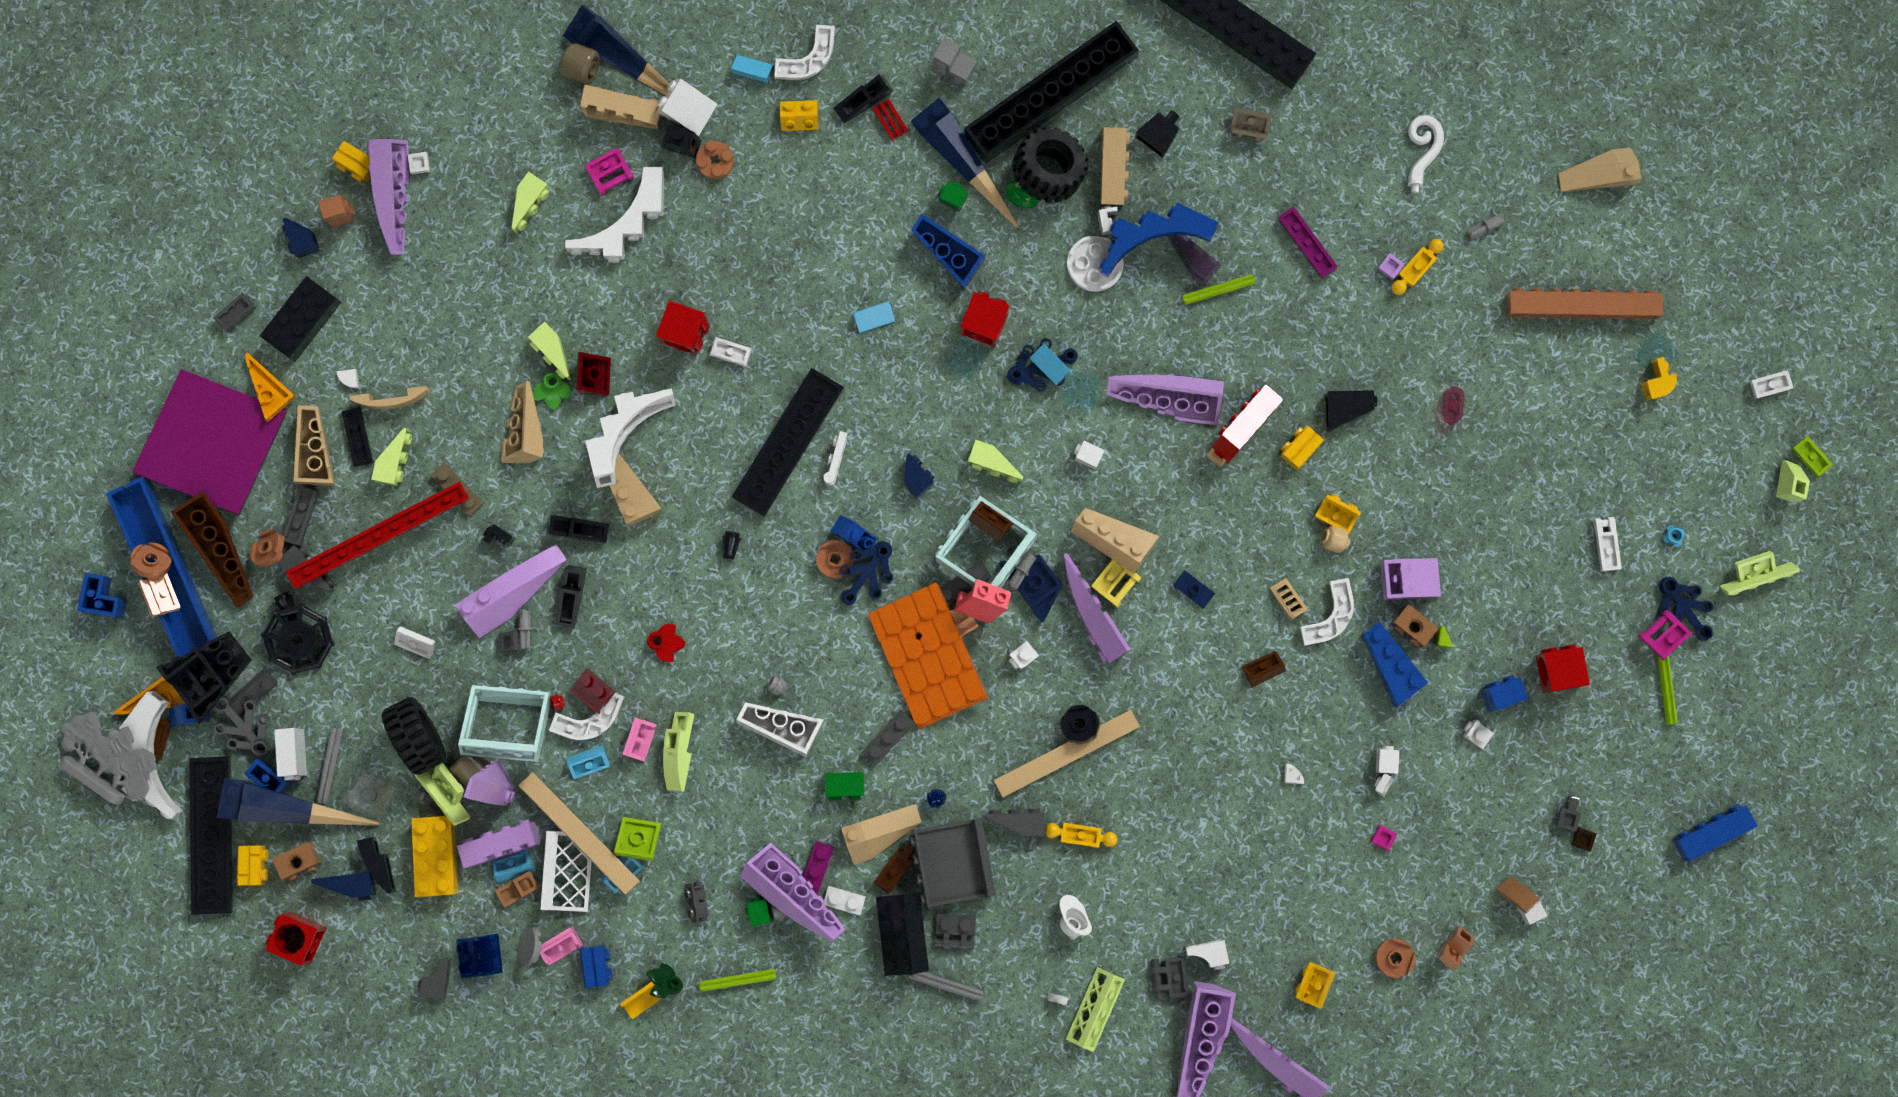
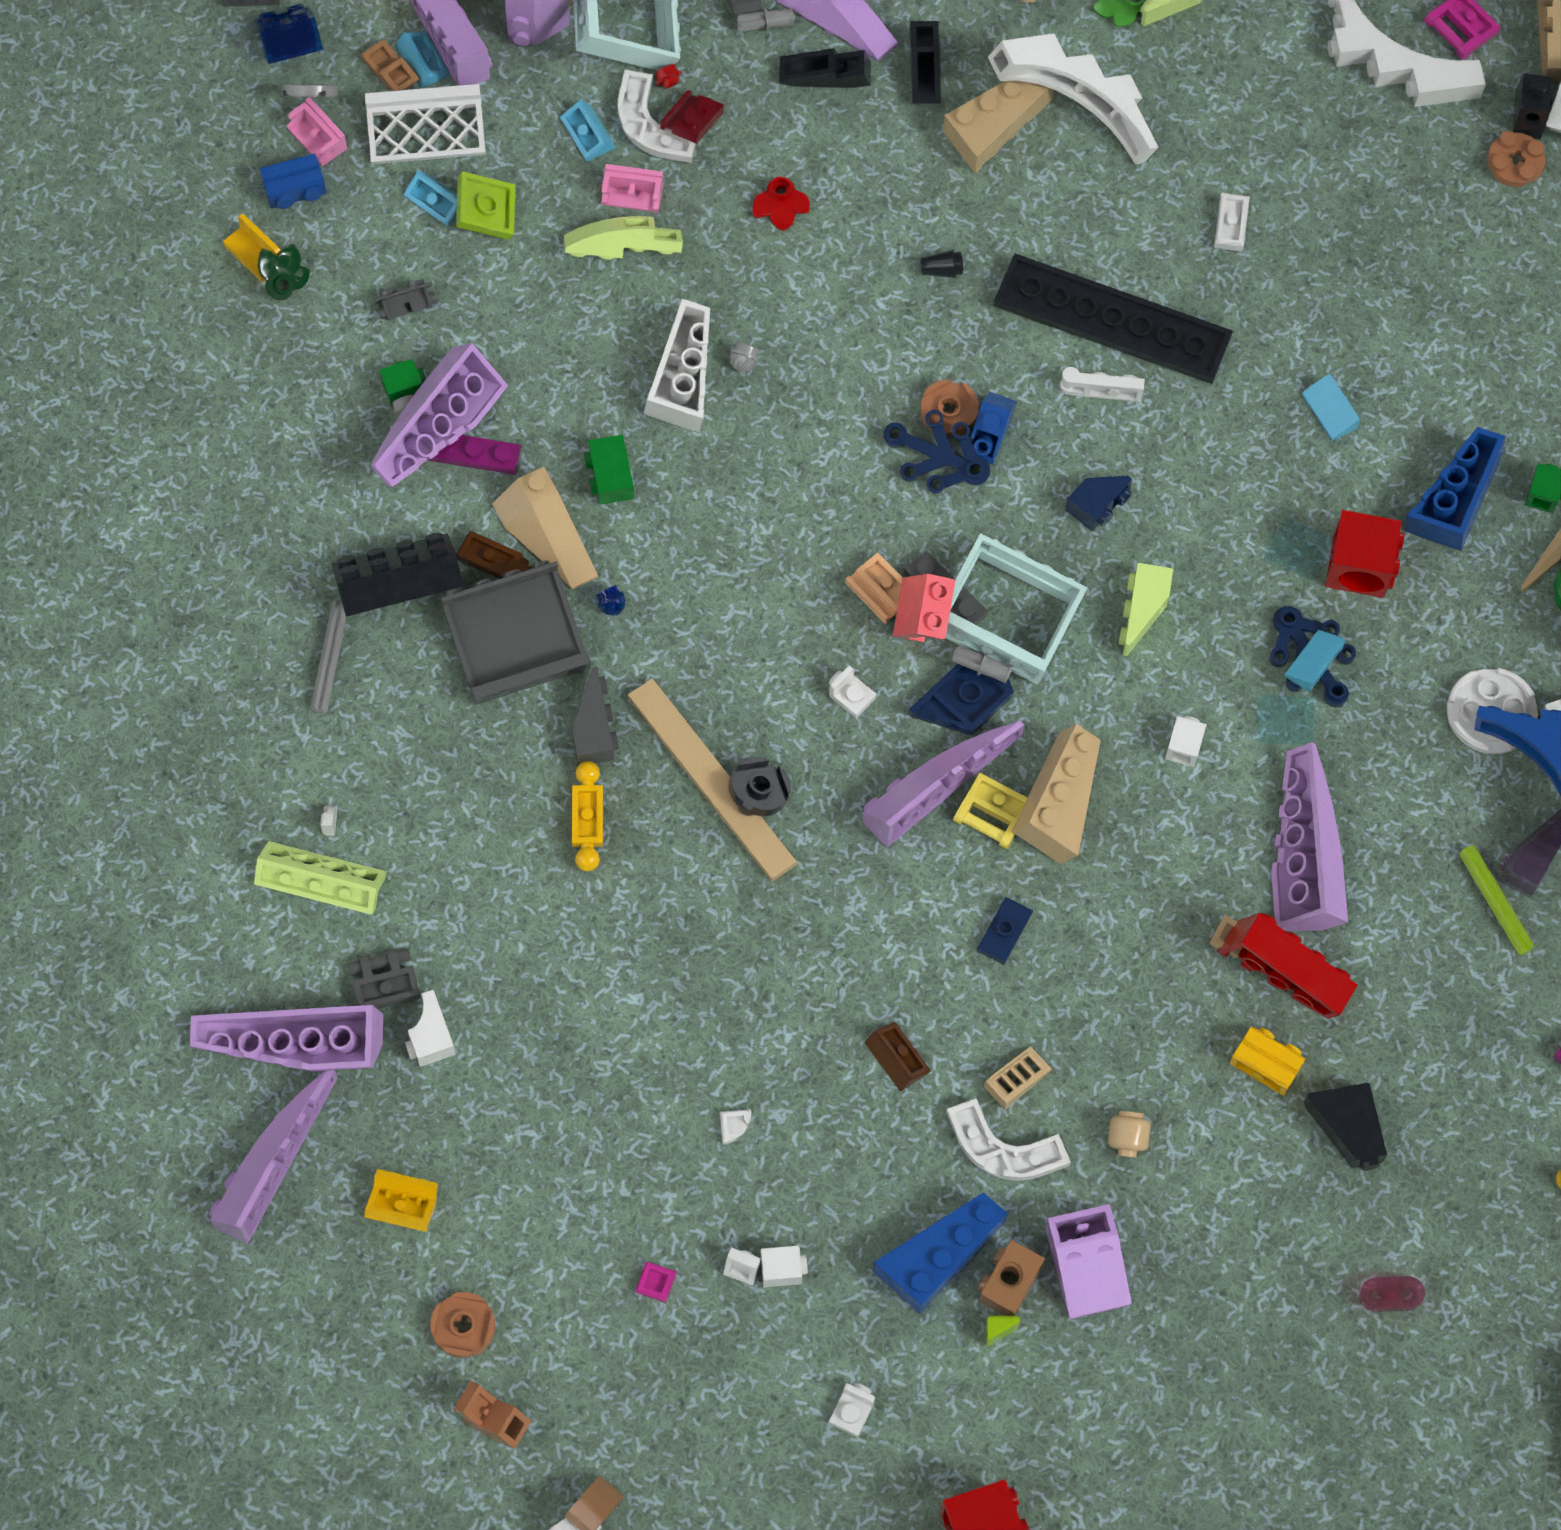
camera: 80 degrees right, 15 degrees down
(579, 834) = (480, 129): tan tile -> none
(593, 374) = (1156, 45): dark red slope -> none
(682, 328) = (1251, 146): red brick -> none
(737, 980) = (298, 372): lime axle -> none
(844, 900) = (436, 498): white plate -> none
(888, 737) = (692, 522): dark grey plate -> none
(933, 670) = (825, 555): orange piece -> none
(957, 925) = (422, 659): dark grey plate -> none
(990, 521) = (1050, 604): reddish brown slope -> none
(1074, 917) = (459, 820): white piece -> none
(1336, 513) = (1171, 1131): yellow bracket -> none
(1501, 695) = (923, 1437): blue brick -> none

